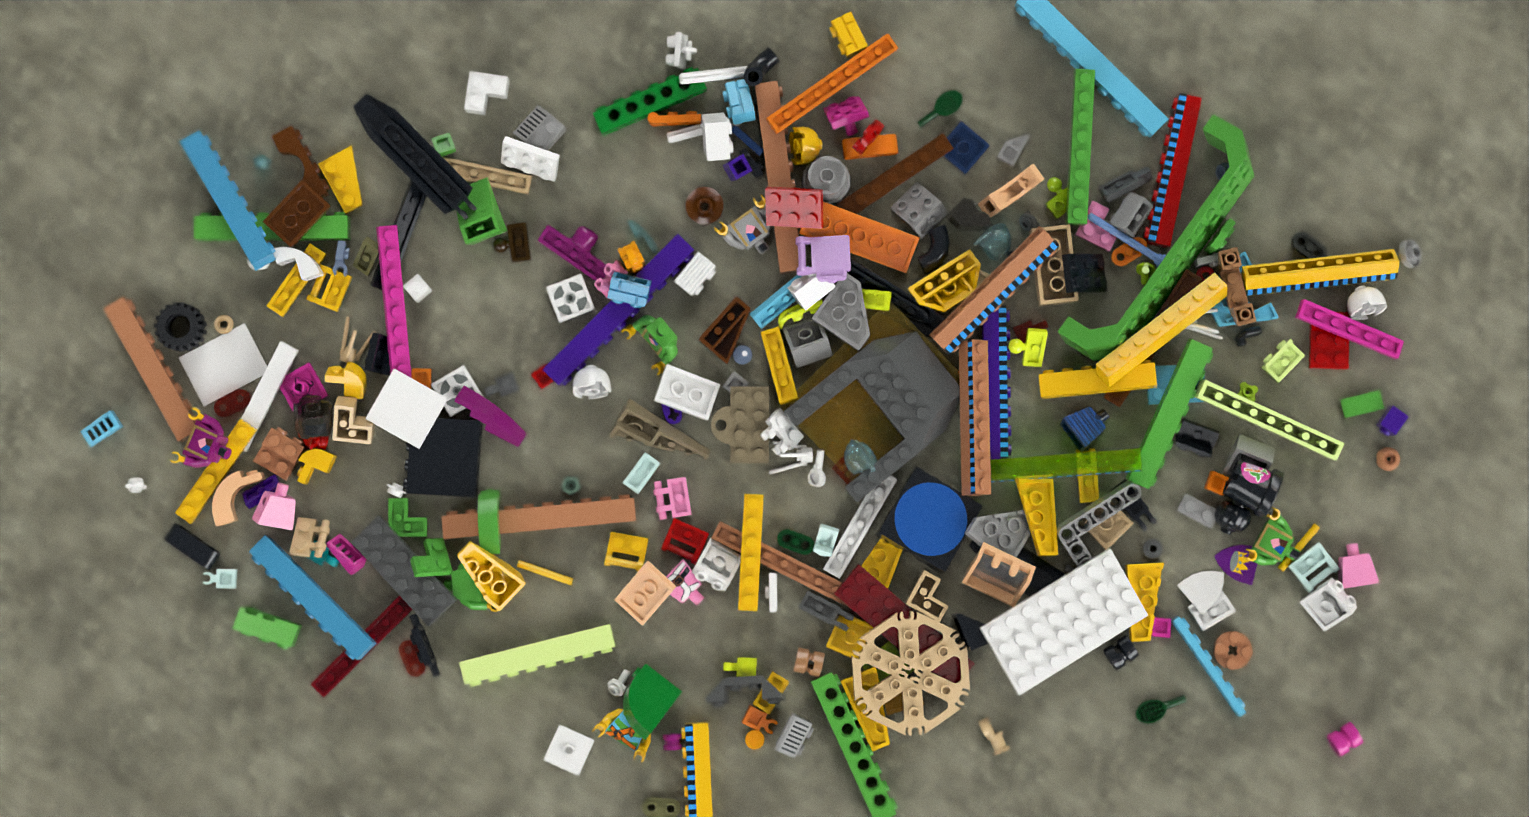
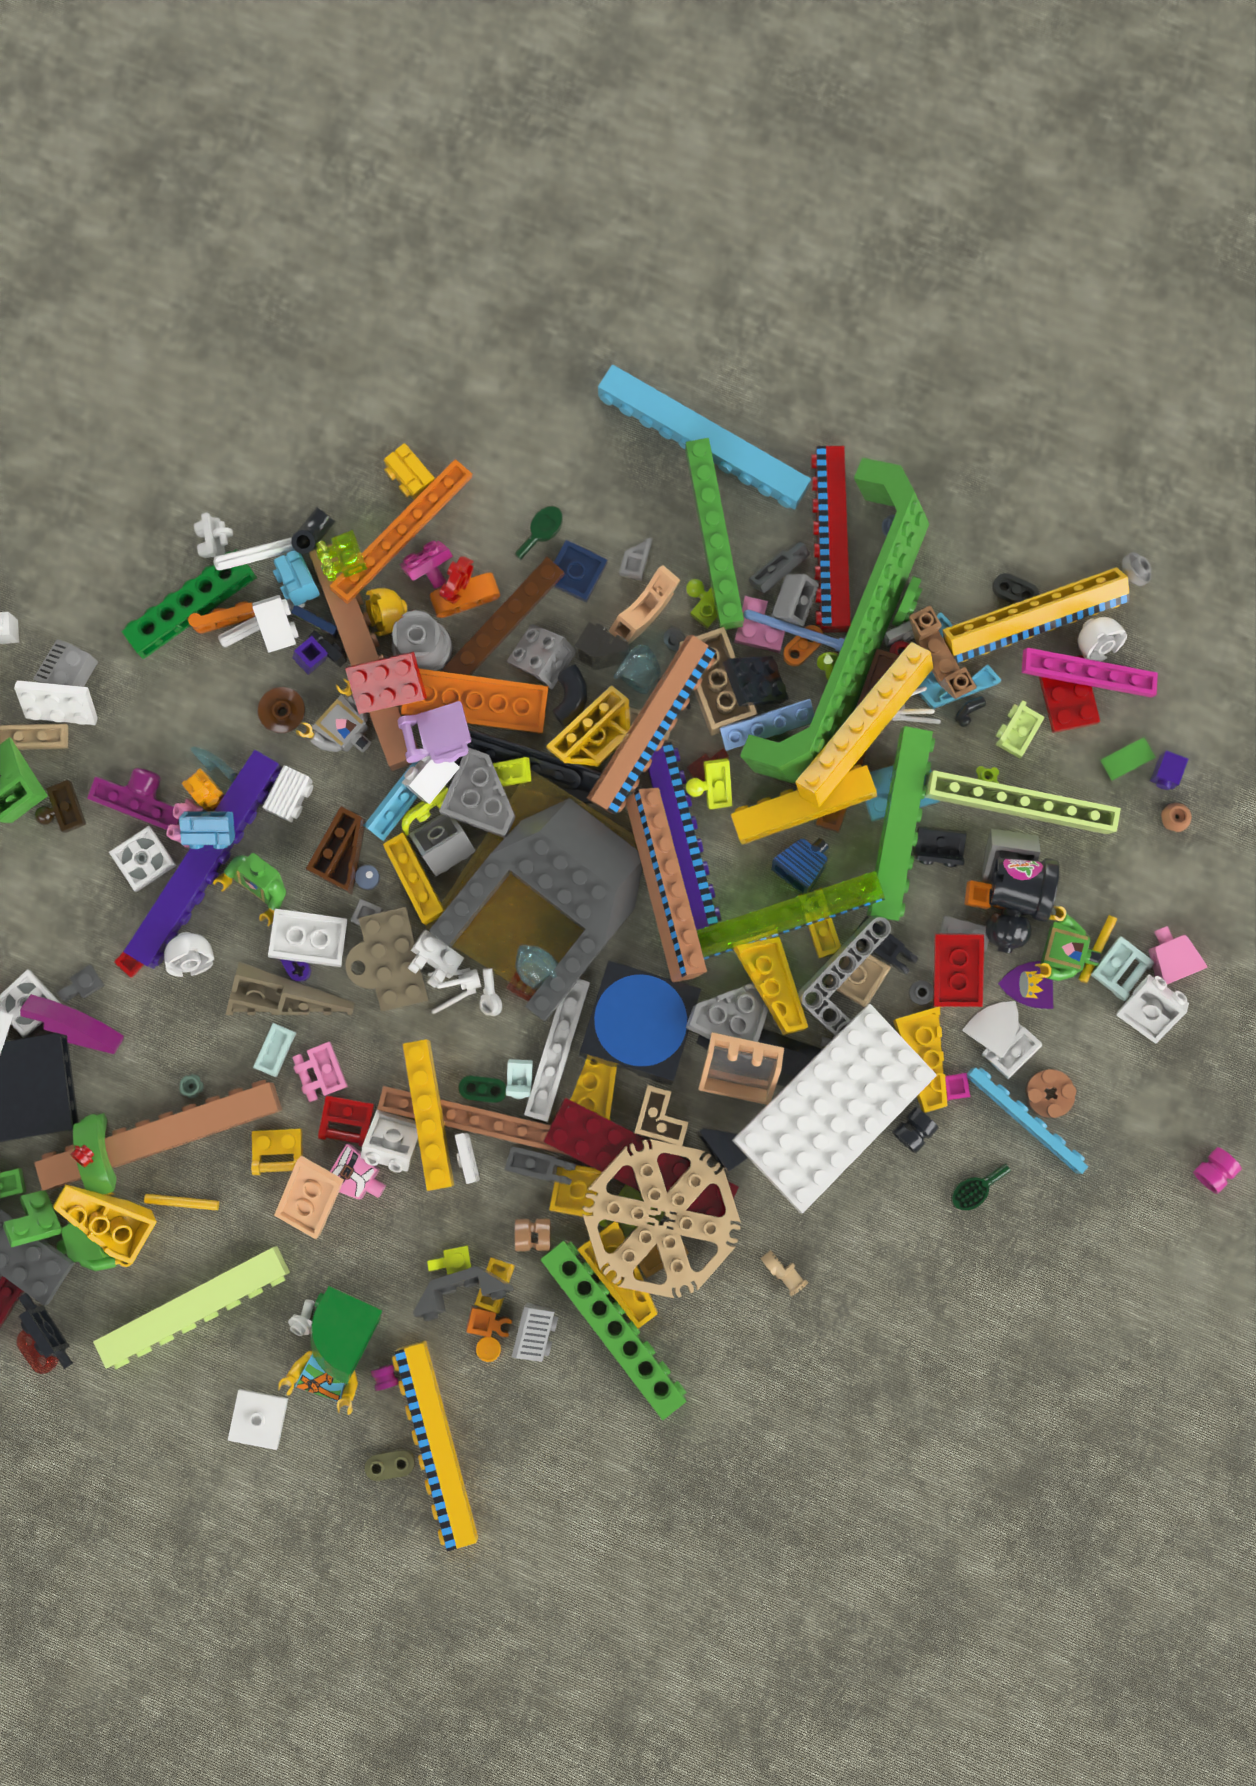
camera: 10 degrees left, 5 degrees down
(485, 521) = (82, 1155): none -> red plate
(787, 95) = (347, 551): none -> clear neon green plate
(1085, 310) = (768, 724): none -> light blue bracket
(1185, 538) = (958, 970): none -> red plate

